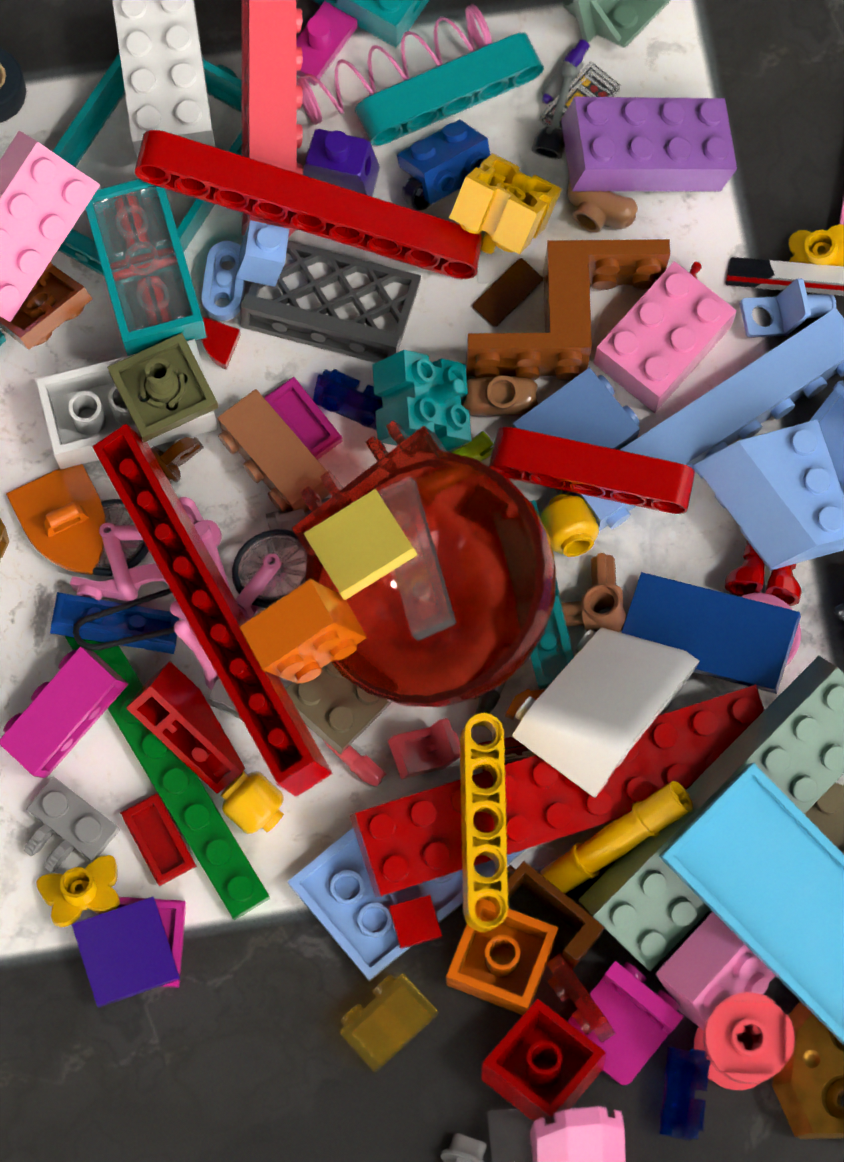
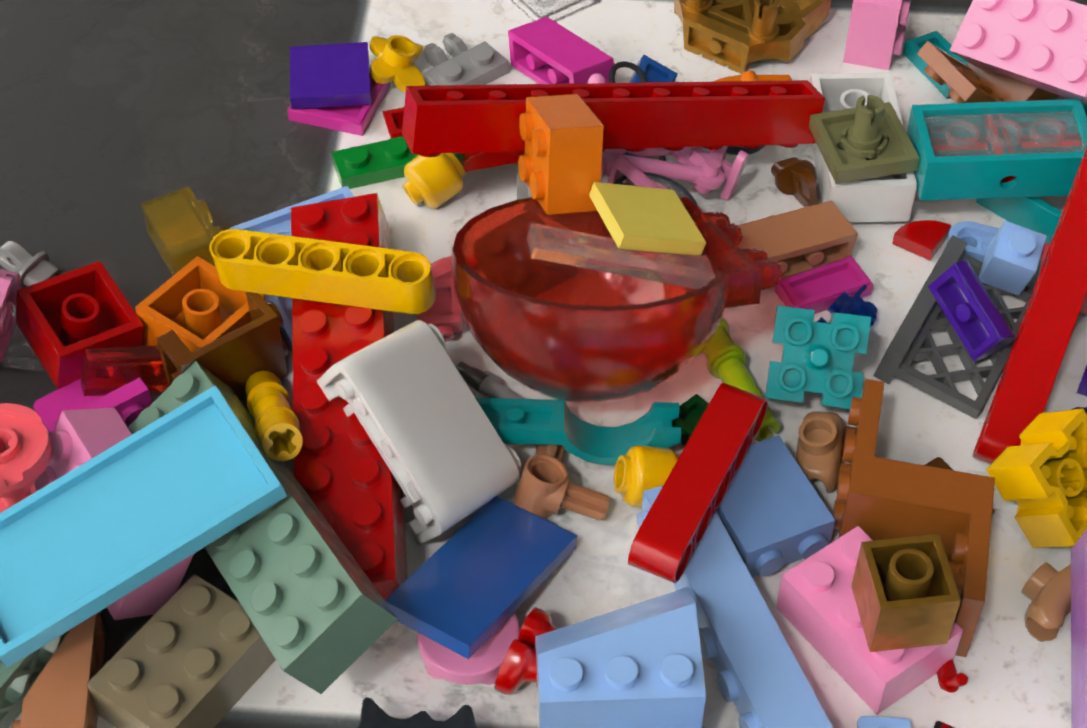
camera: 105 degrees right, 25 degrees down
(333, 282) = (971, 311): none -> dark purple brick
(683, 293) = (905, 592): none -> pearl gold head

